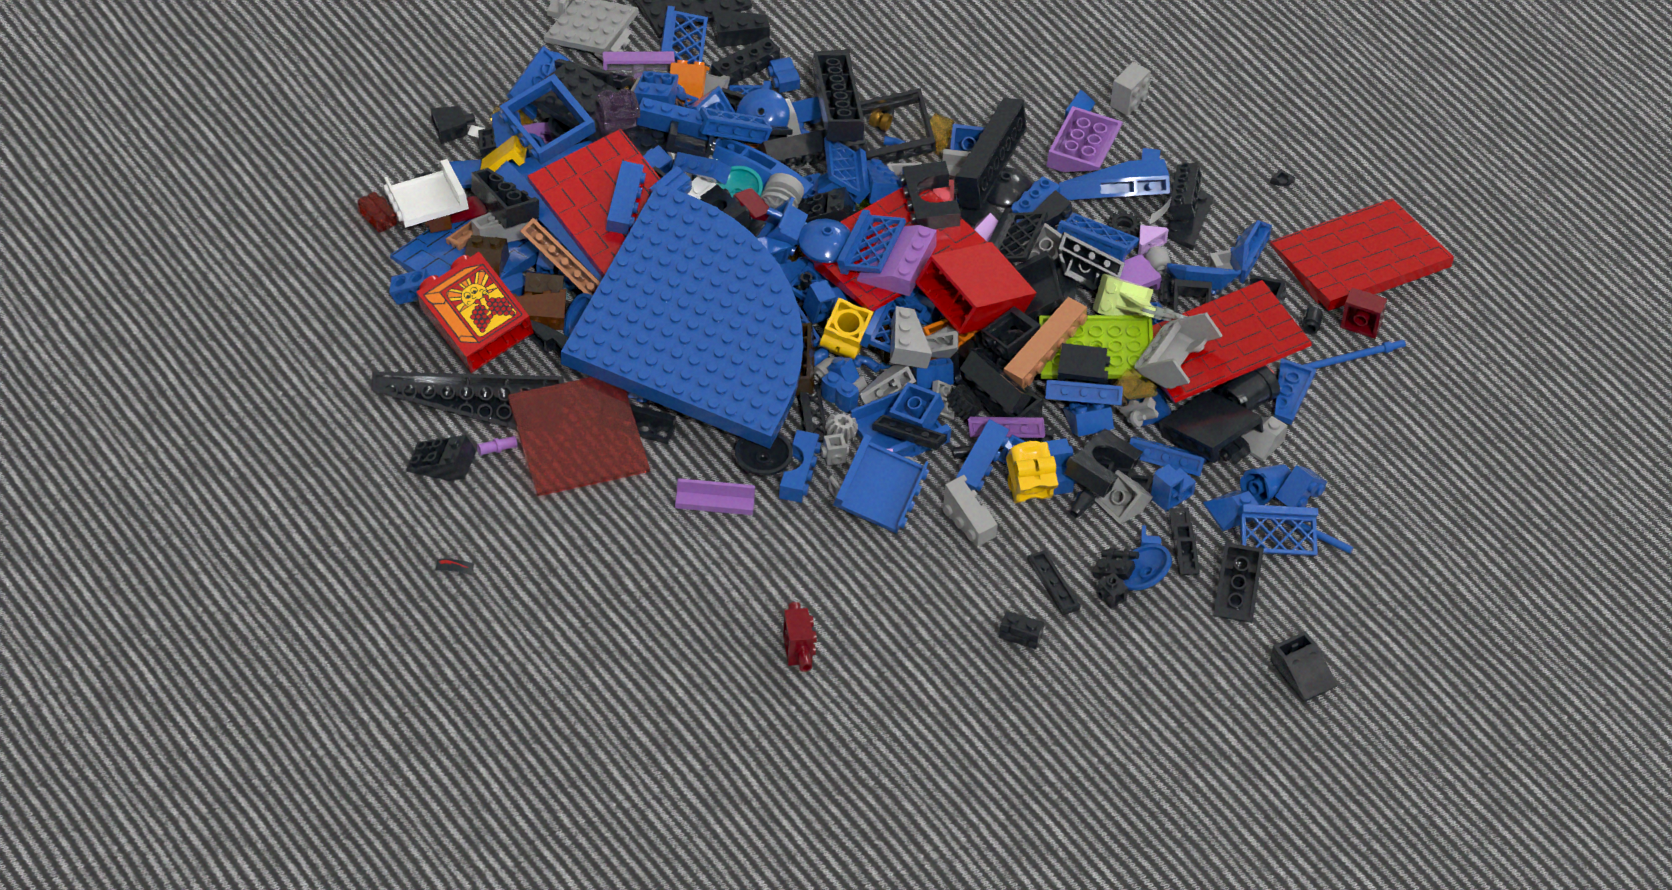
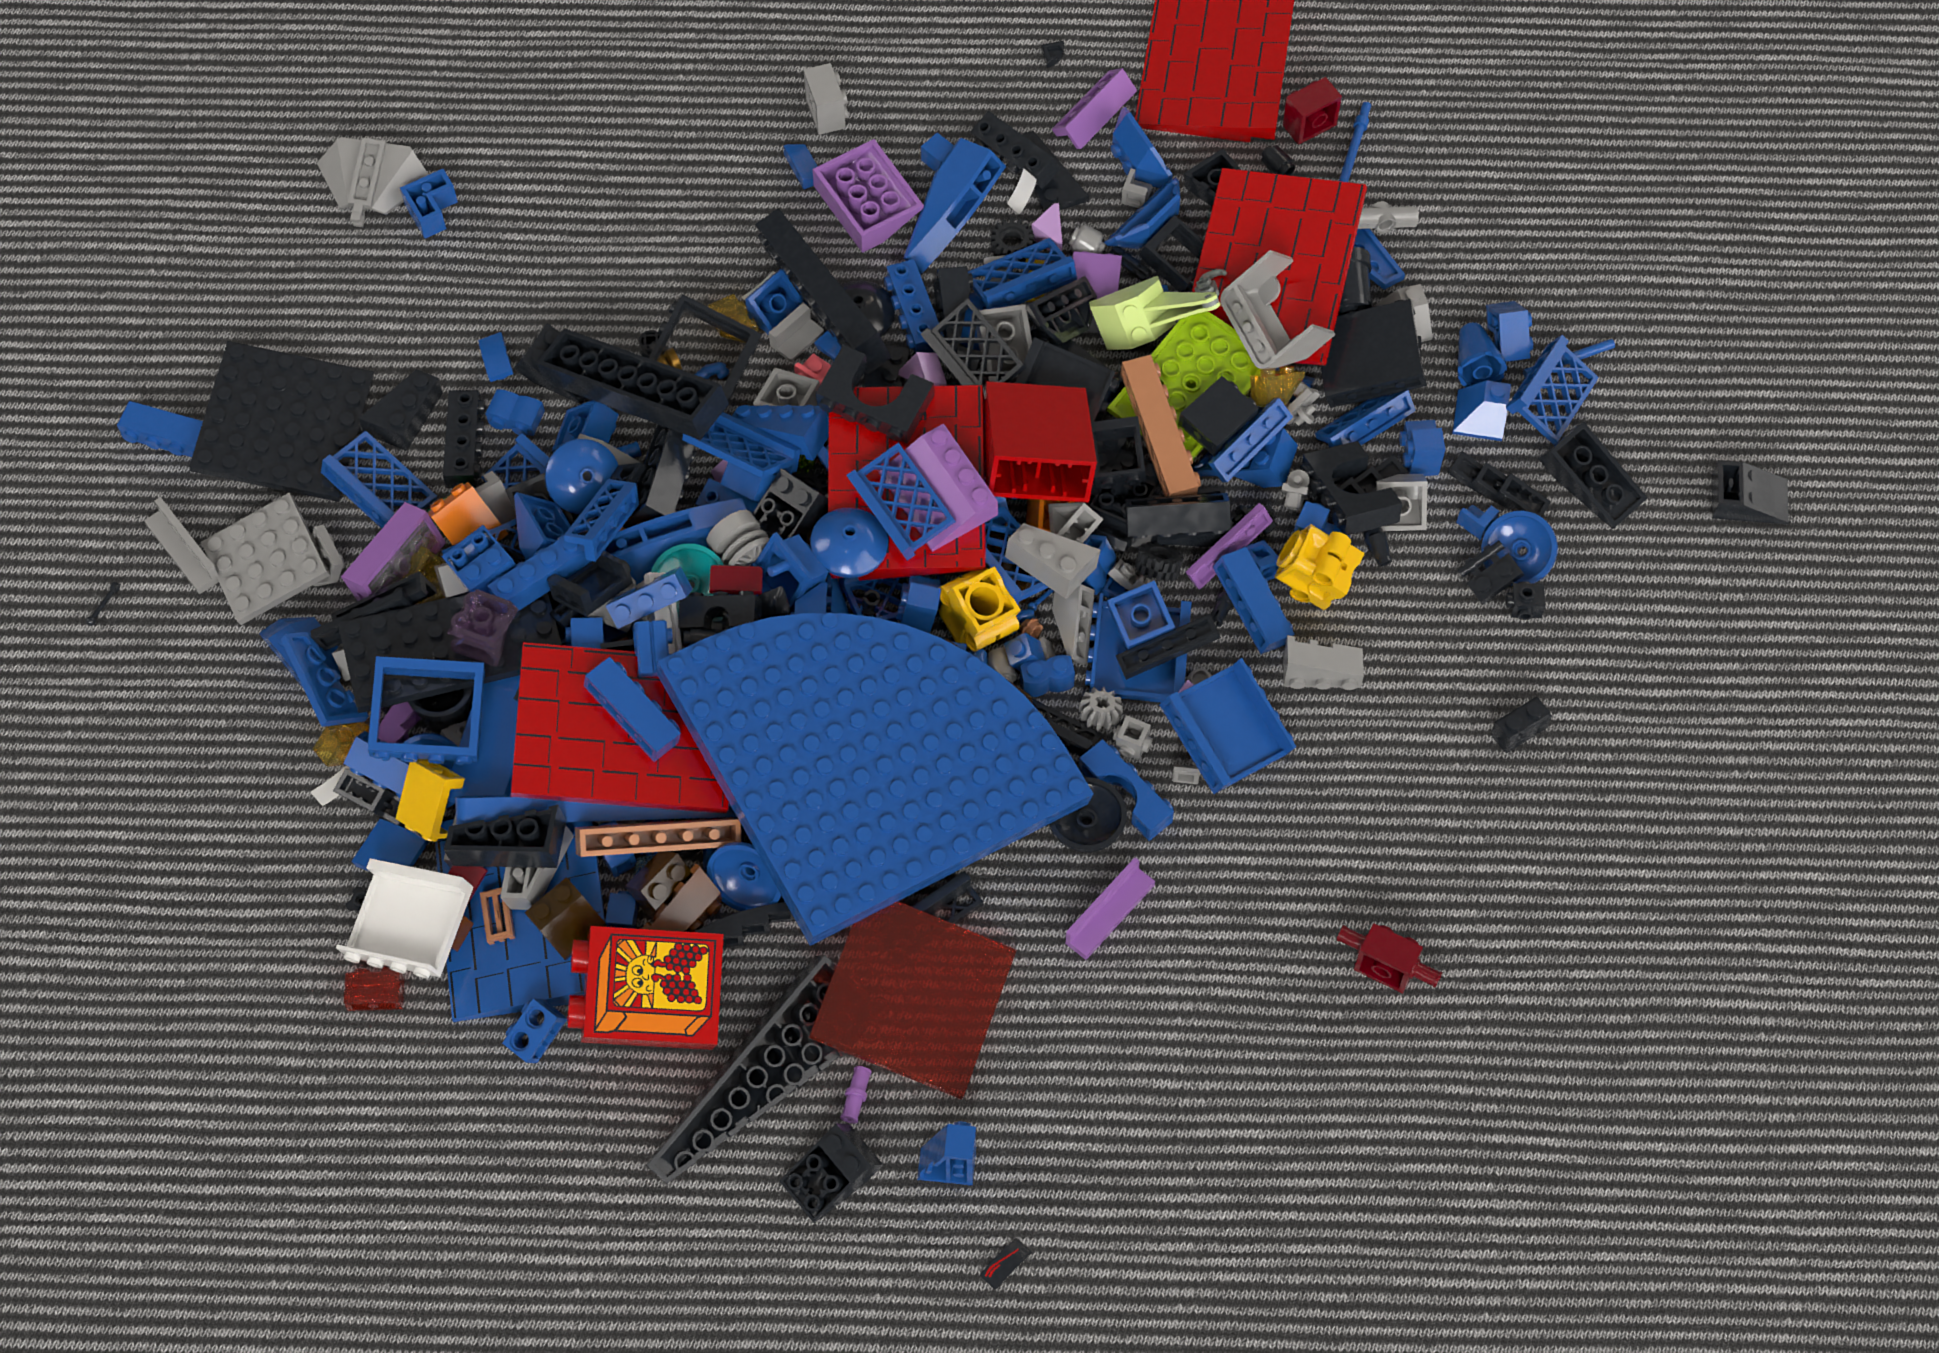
camera: 50 degrees left, 15 degrees up
(450, 123) = (294, 814): black torso -> none
(493, 498) = (949, 1155): none -> blue wedge
(811, 46) = (495, 357): none -> blue slope
(865, 370) = (1031, 627): none -> nougat plate
(1053, 582) = (1466, 647): black tile -> none
(1077, 440) = (1296, 490): none -> light grey hips
(1245, 216) = (1096, 108): none -> medium lavender panel
(1321, 386) = (1387, 218): none -> light grey piece

